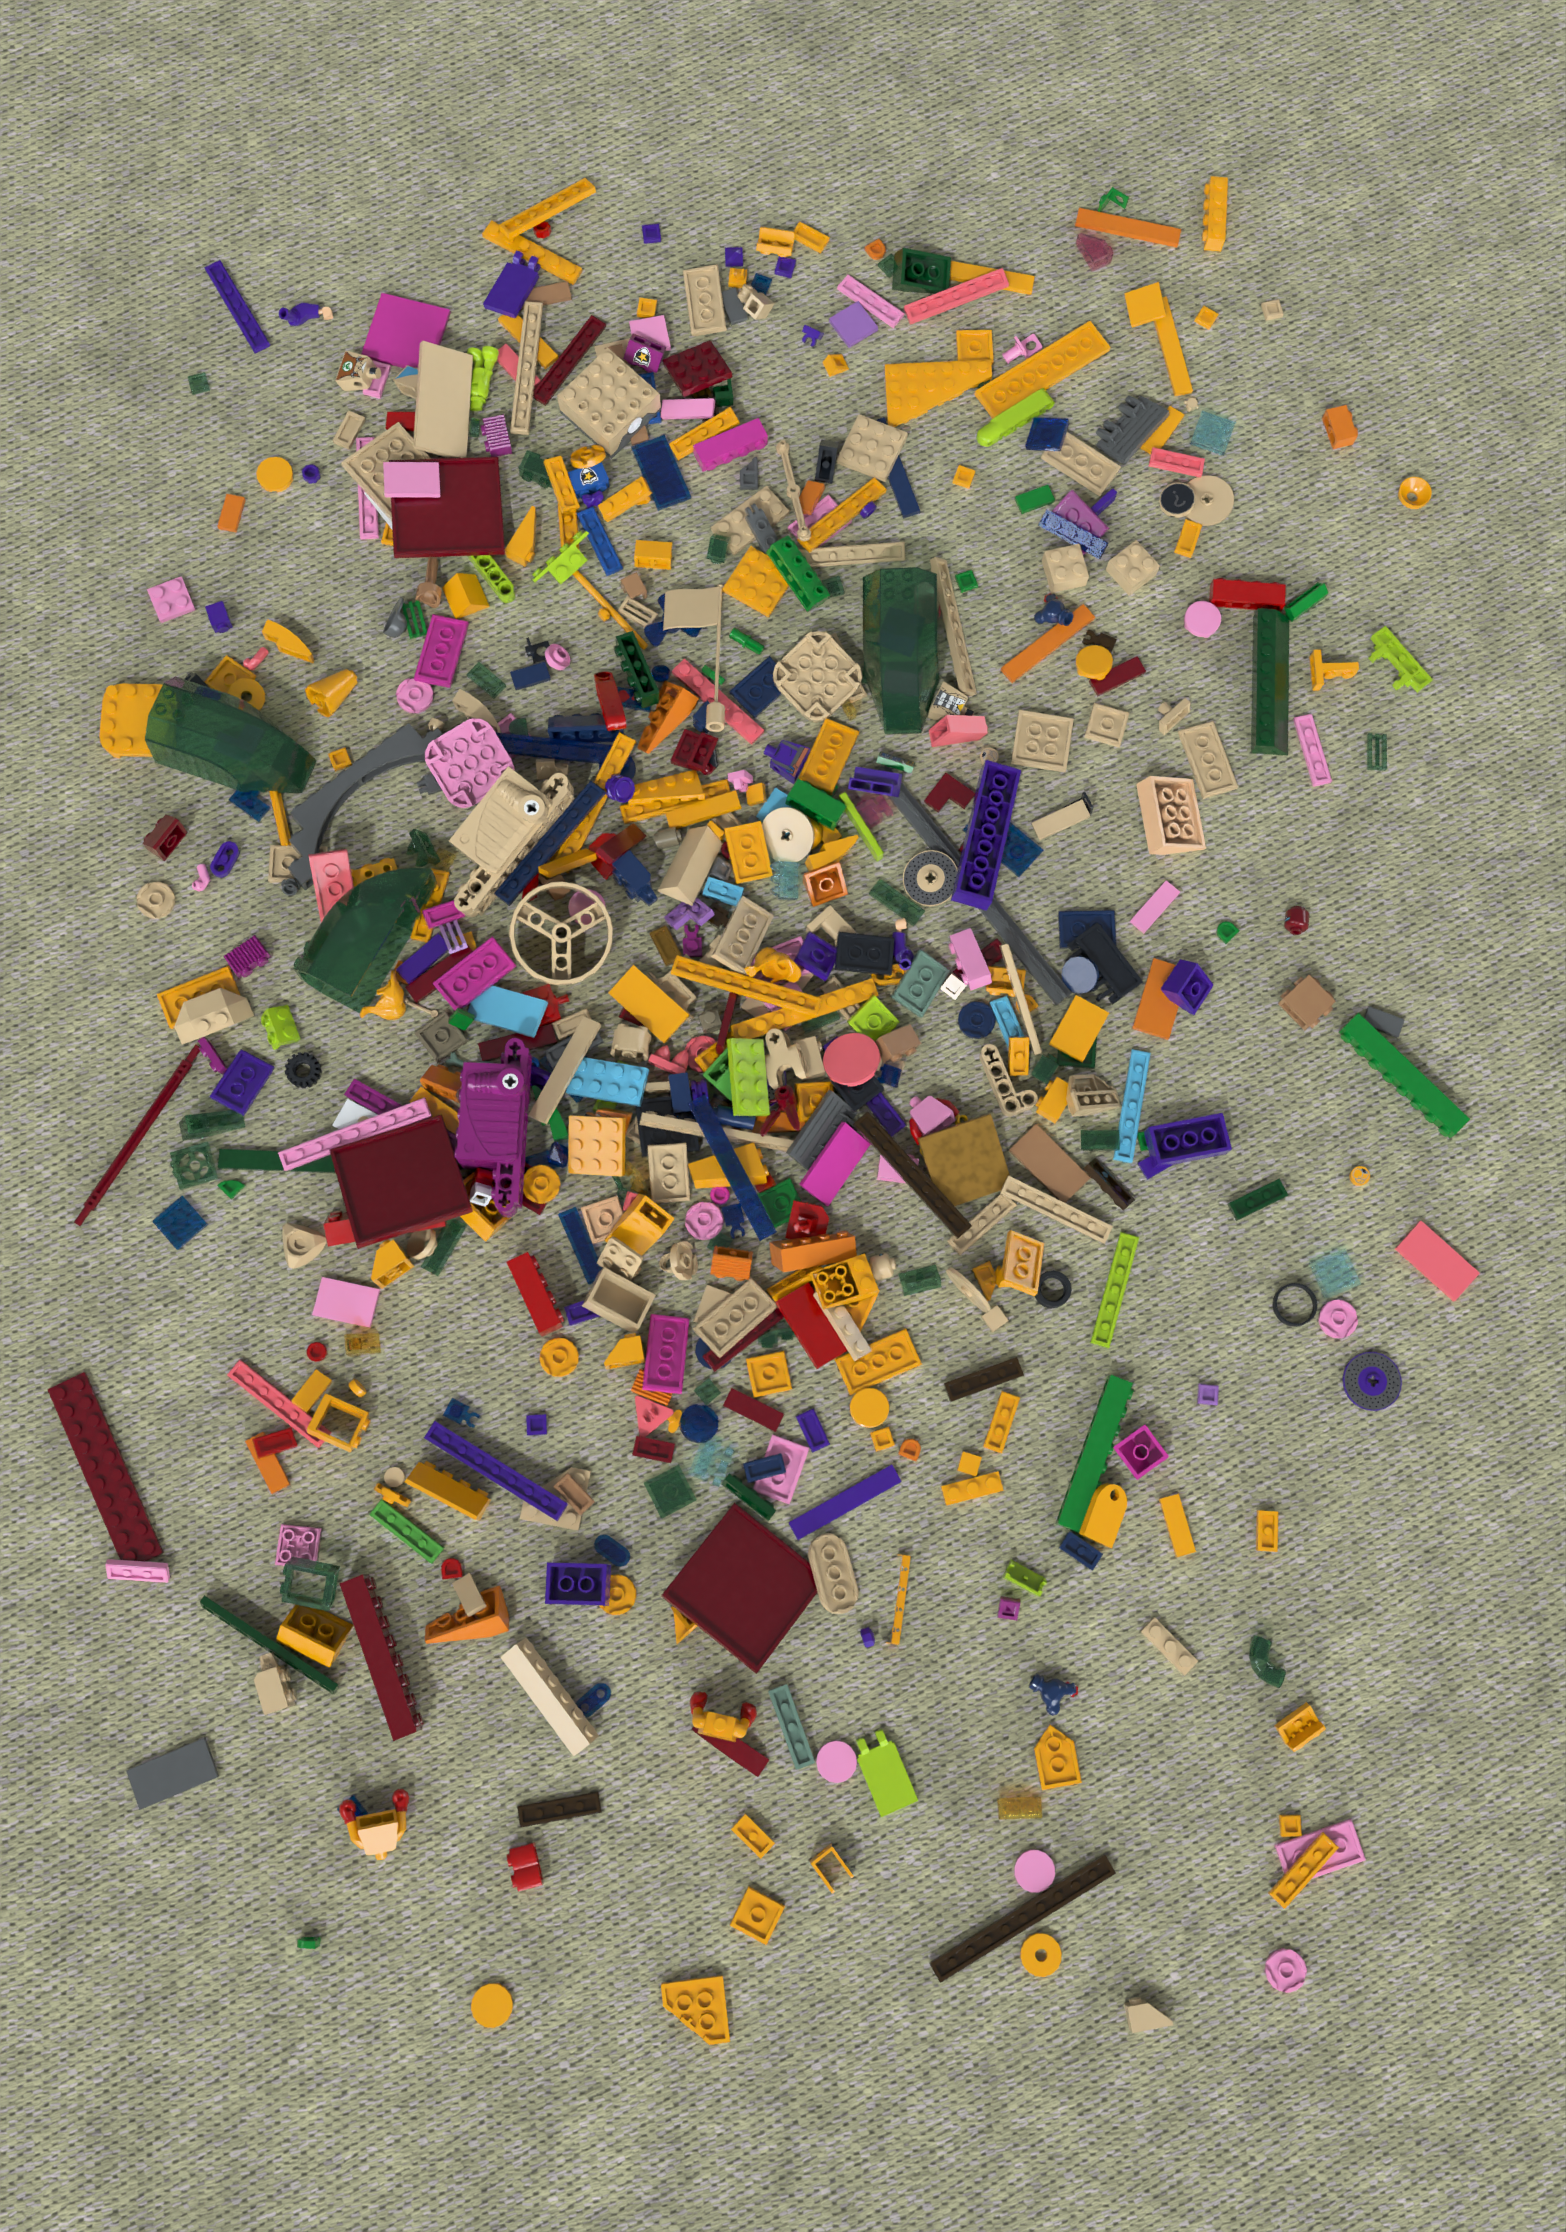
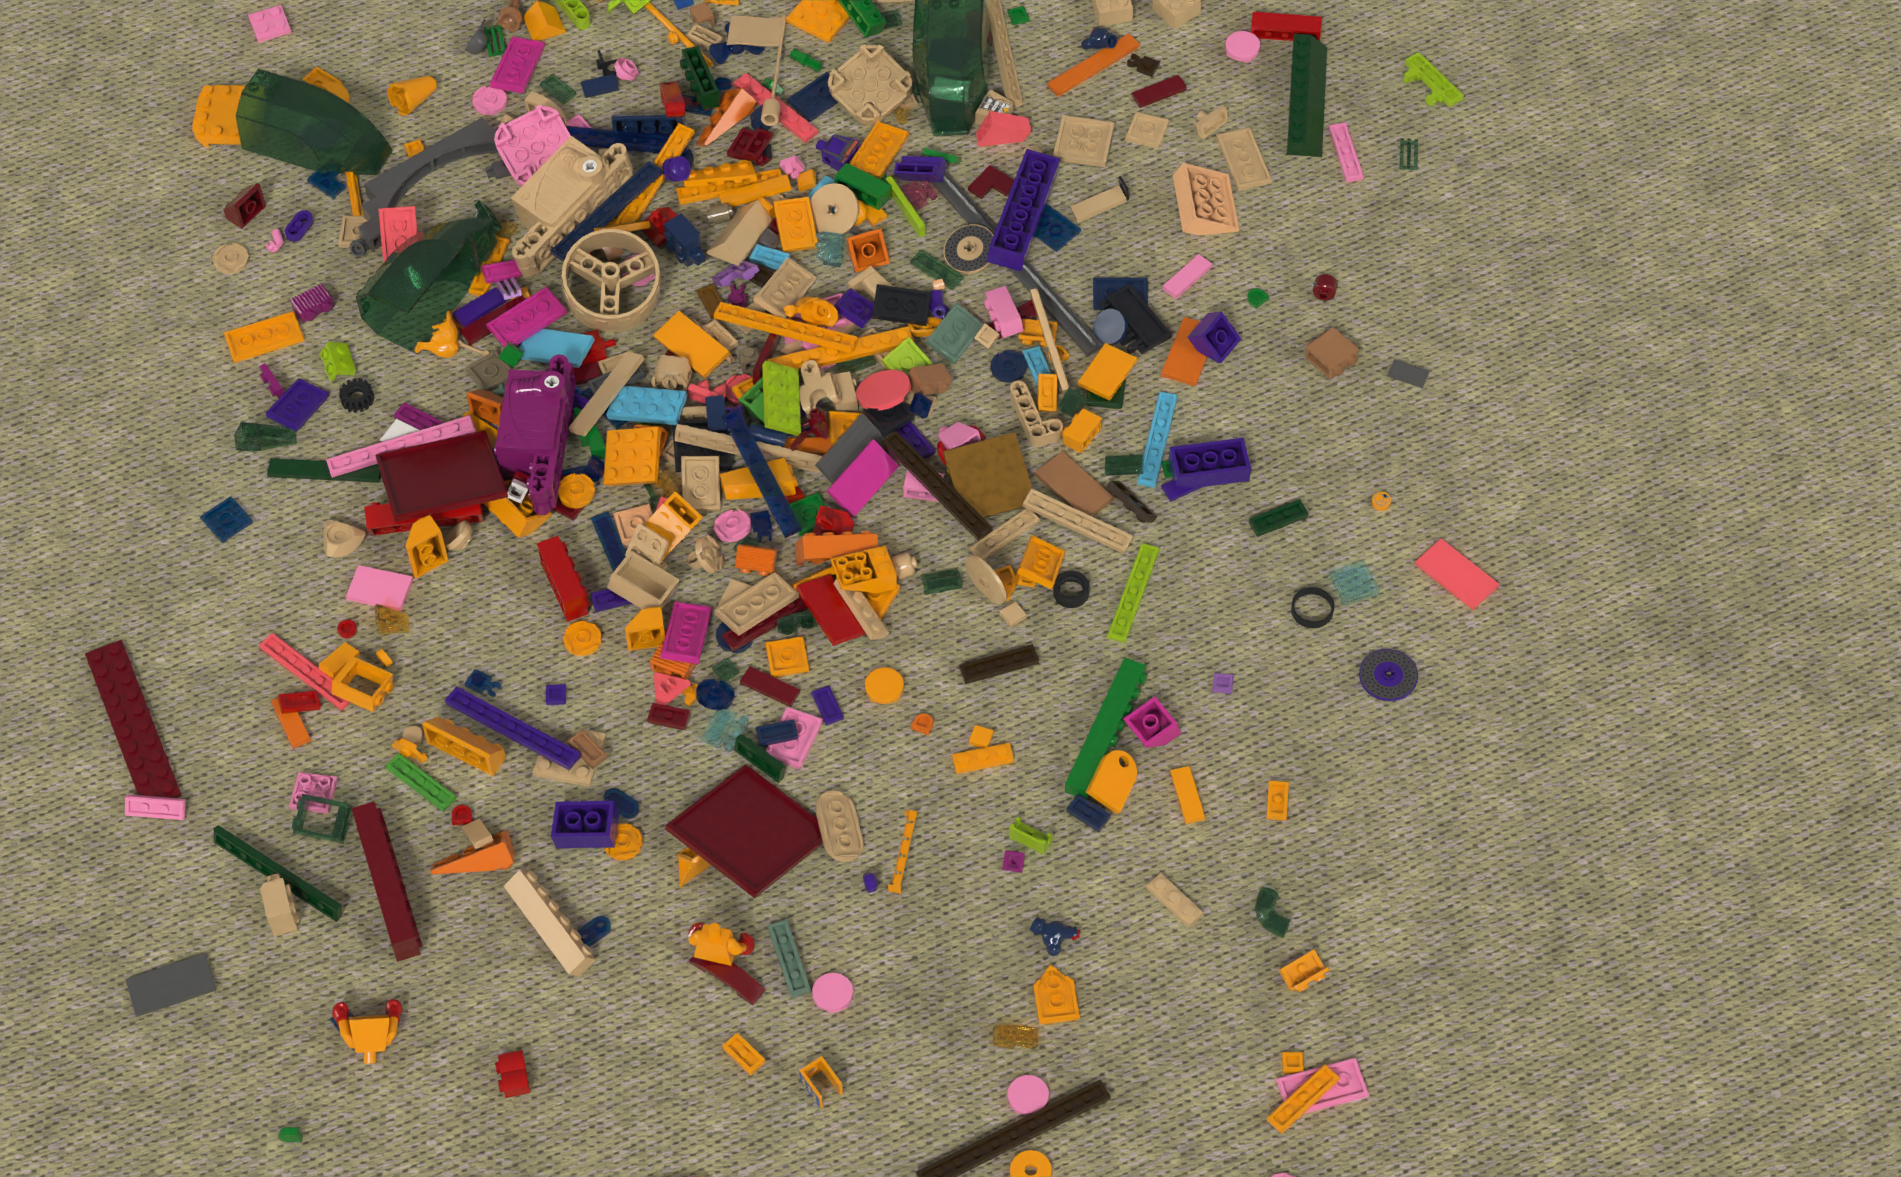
camera: 10 degrees right, 20 degrees down
(138, 1134) = (193, 447): dark red axle -> none
(177, 1156) = (259, 481): clear green piece -> none
(210, 1014) = (273, 347): tan wedge -> none
(219, 617) = (312, 35): dark purple brick -> none
(231, 1187) = (278, 492): green tile -> none
(252, 663) = (343, 70): coral arm -> none
(286, 641) = (374, 55): light orange slope -> none
(314, 1633) = (321, 864): light orange slope -> none
(446, 1244) = (479, 543): clear green tile -> none
(519, 727) = (586, 122): clear green tile -> none
(559, 1809) = (551, 1027): dark brown tile -> none
(621, 843) = (669, 210): dark red tile -> none
(670, 1491) = (682, 754): clear green tile -> none
(719, 1195) = (749, 505): dark pink tile -> none
(757, 1915) = (743, 1127): light orange tile -> none
(831, 852) = (886, 221): light orange slope -> none
(844, 1502) = (855, 767): dark purple tile -> none
(882, 1439) = (895, 714): light orange tile -> none
(885, 1775) = (881, 1004): lime tile -> none
(887, 1359) = (897, 649): light orange tile -> none
(1001, 1422) = (1015, 702): light orange tile -> none
(1090, 1095) = (1115, 426): tan wedge -> none
(1094, 662) = (1136, 78): light orange tile -> none
(1306, 601) = (1343, 33): green piece -> none
(1329, 670) = (1364, 86): light orange bracket -> none
(1334, 1324) = (1356, 621): bright pink tile -> none
(1404, 1076) = (1426, 416): green brick -> none

